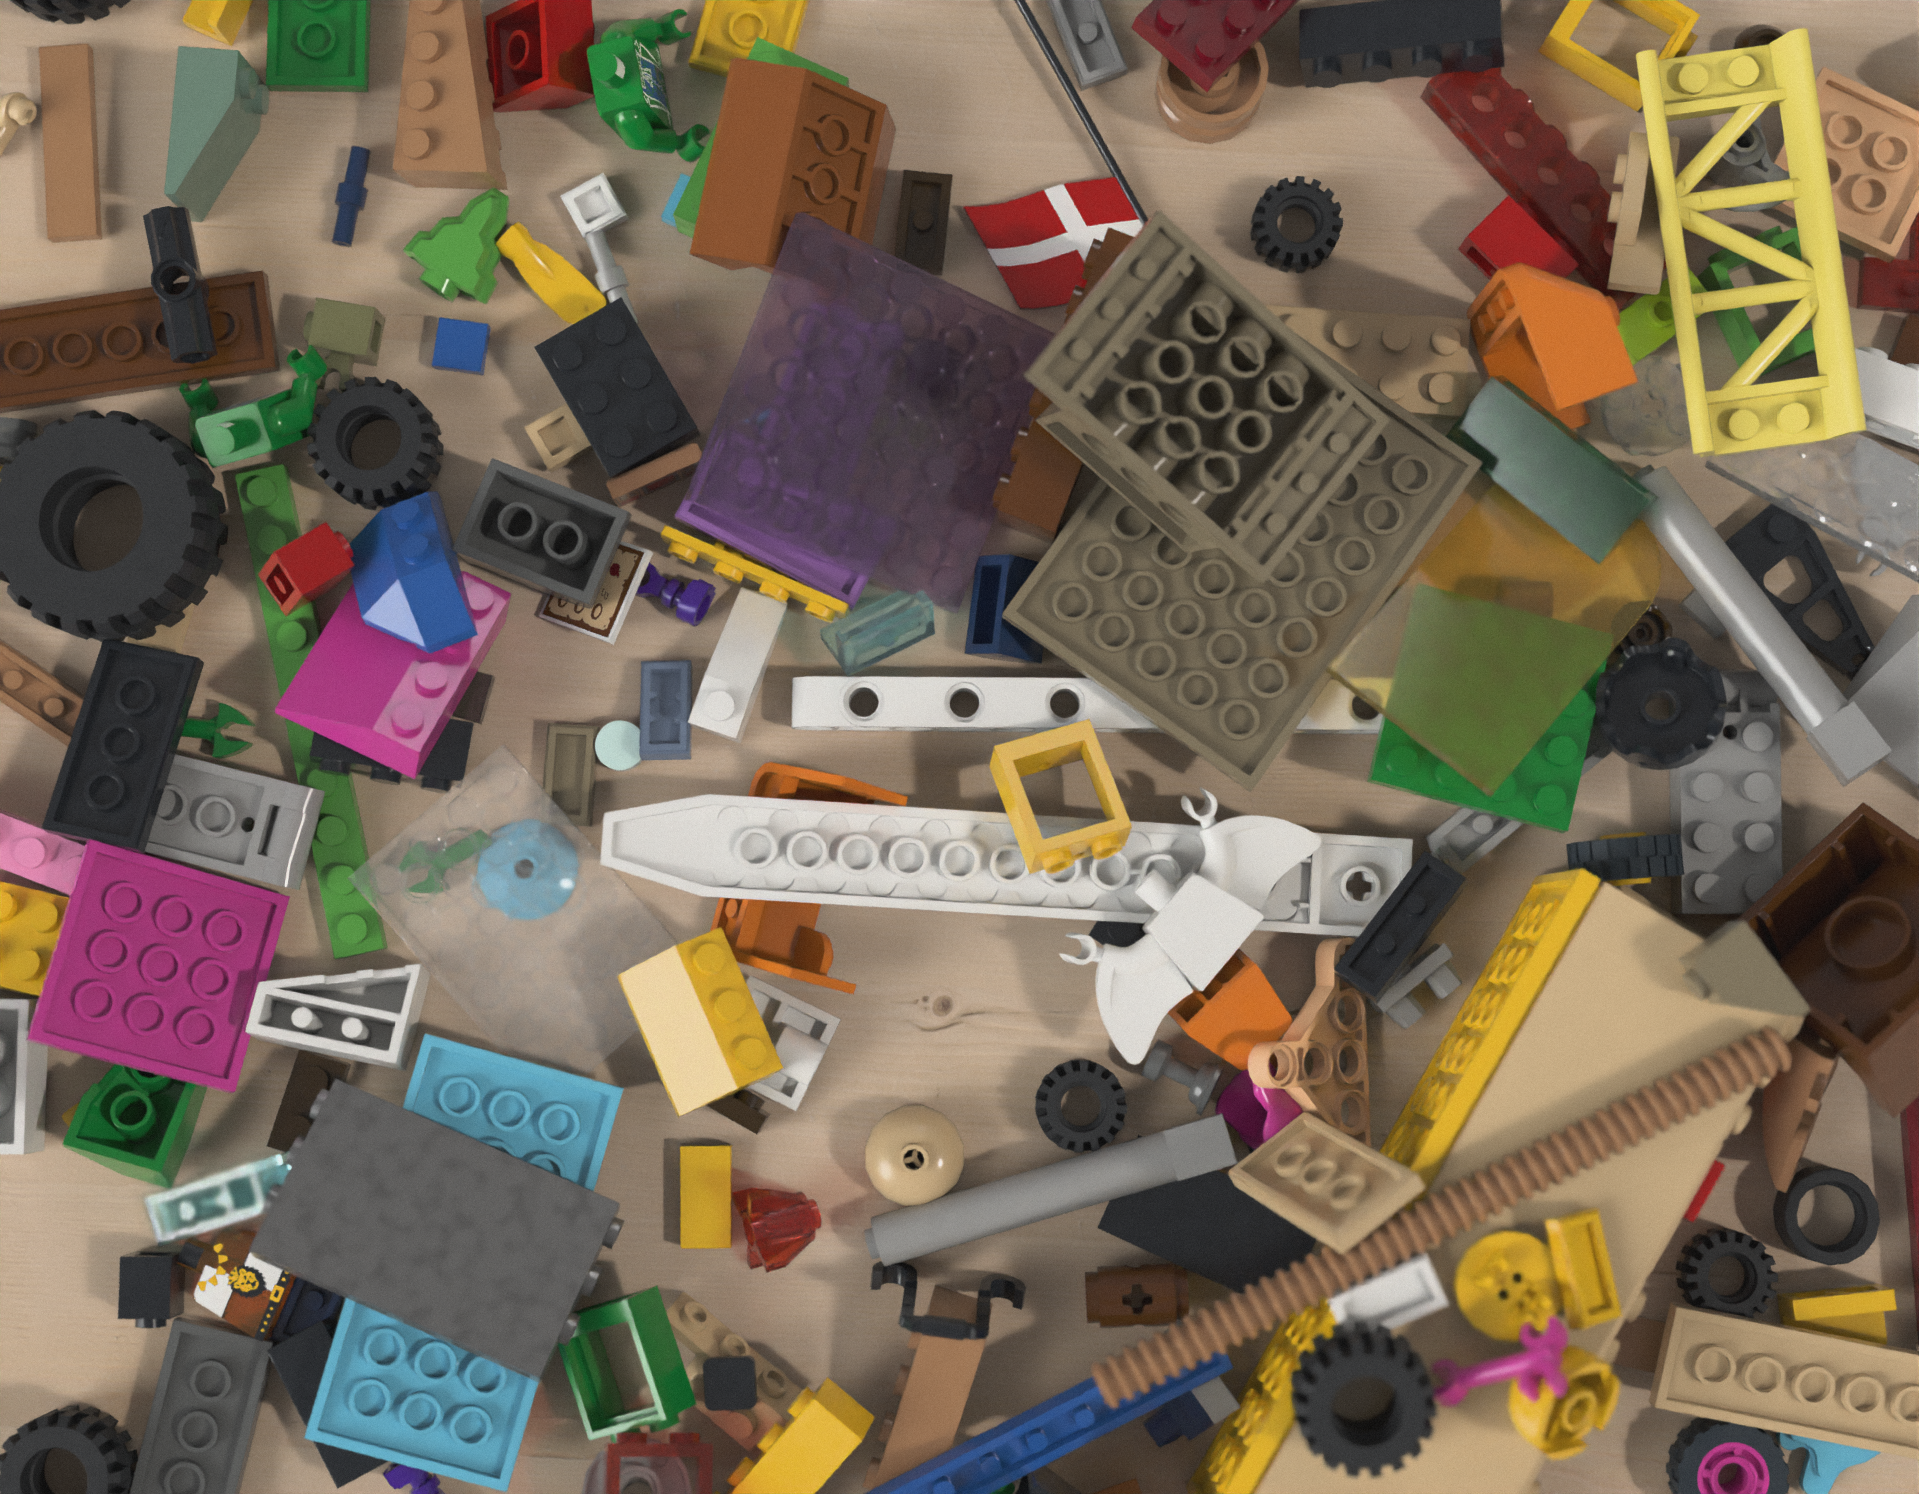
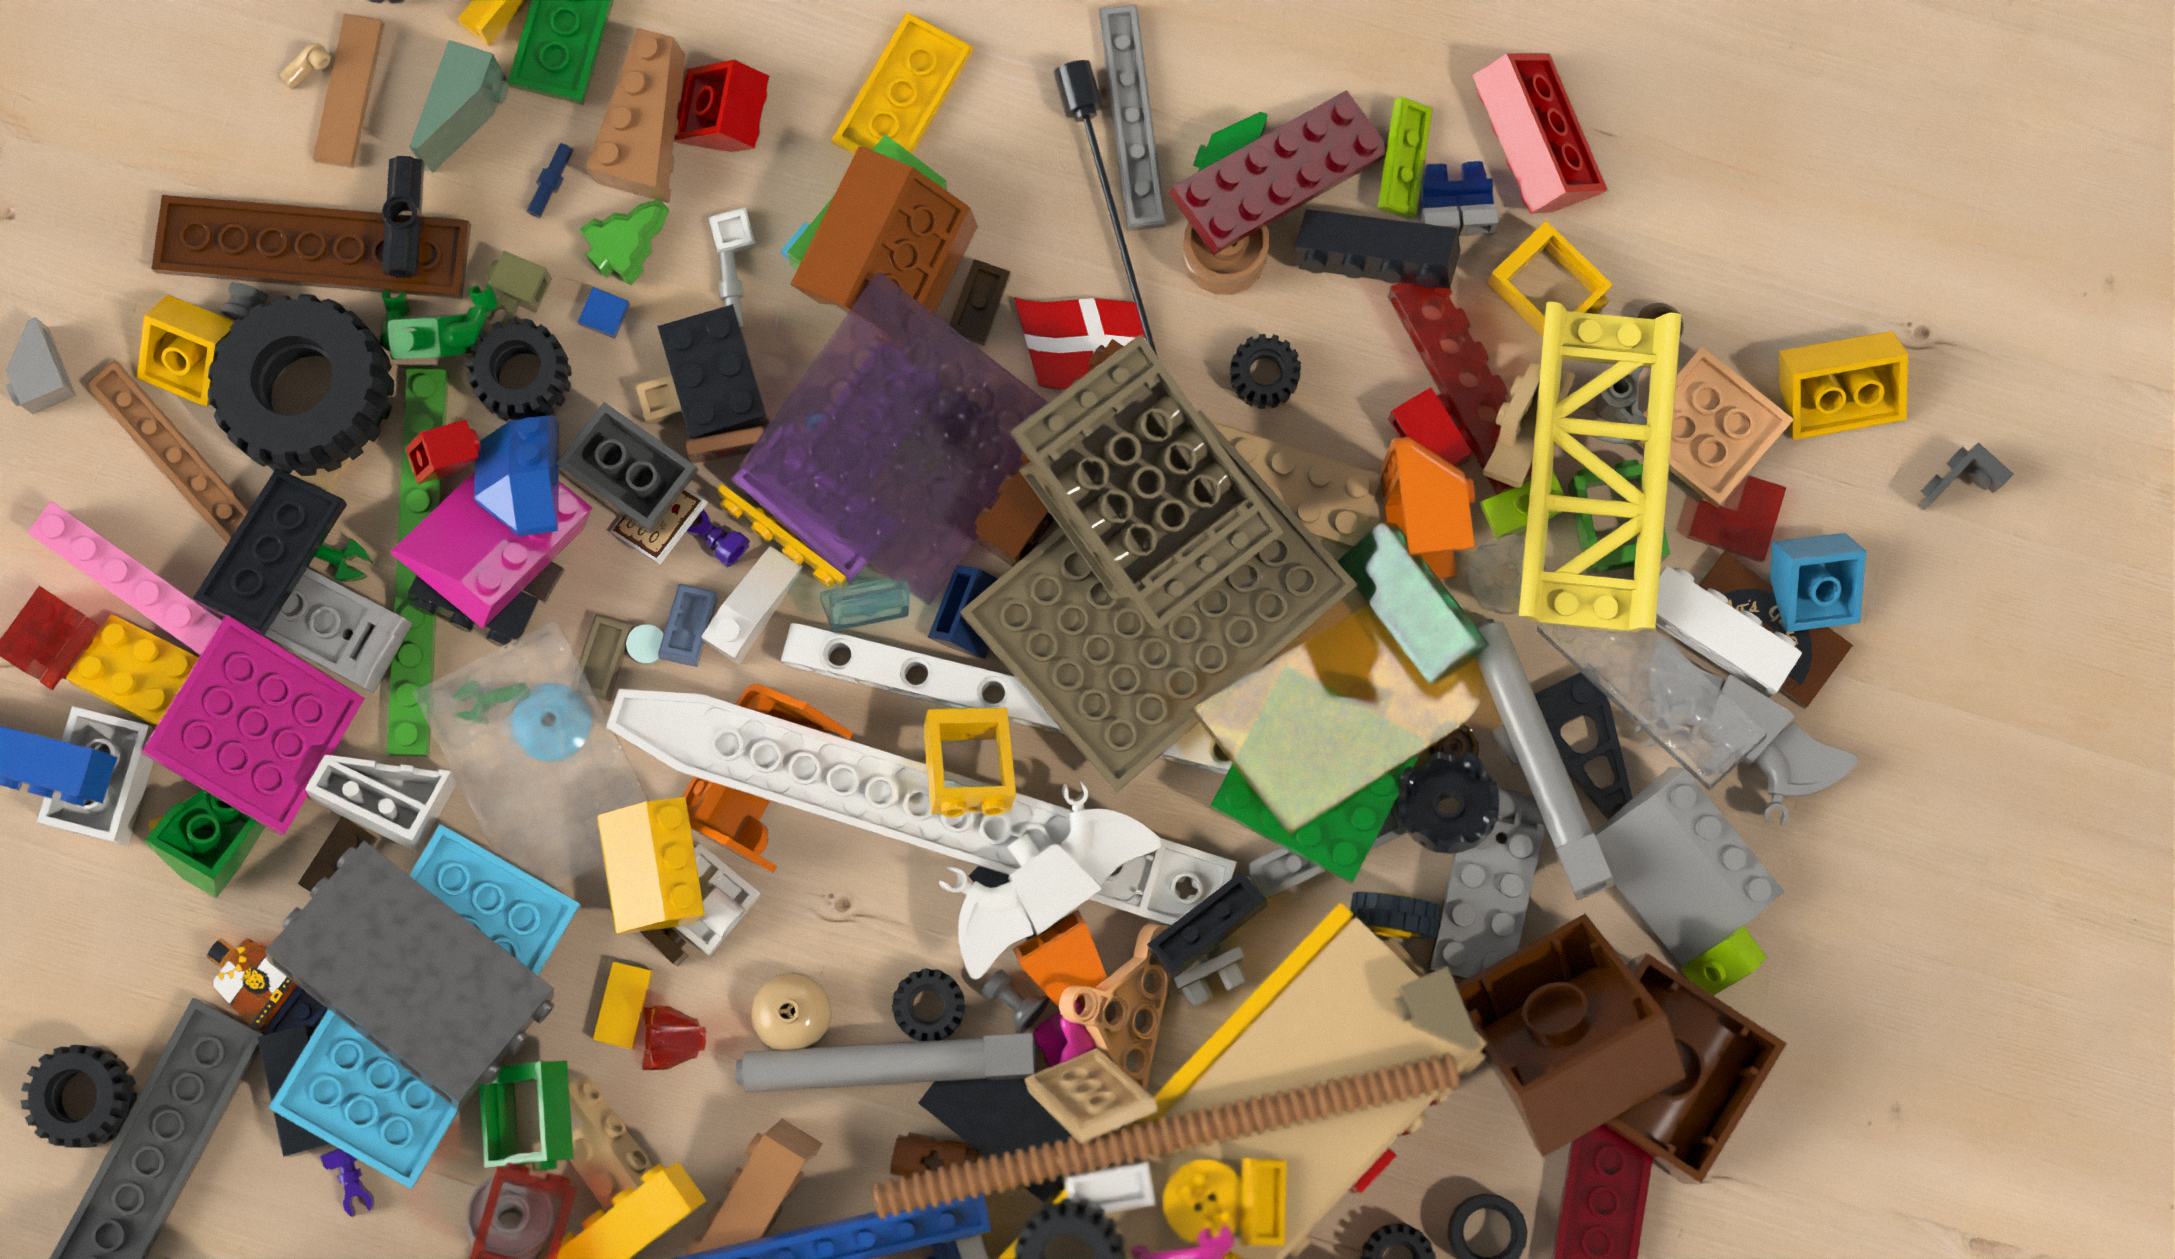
camera: 15 degrees right, 5 degrees down
(151, 1288) = (181, 970): black brick -> none
(215, 1200) = (246, 914): clear light blue slope -> none
(550, 275) = (685, 275): yellow piece -> none
(633, 89) = (783, 149): green torso -> none
(730, 1383) = (603, 1149): black piece -> none
(945, 1327) = (779, 1142): black piece -> none
(1794, 1103) = (1477, 1132): medium nougat wedge -> none

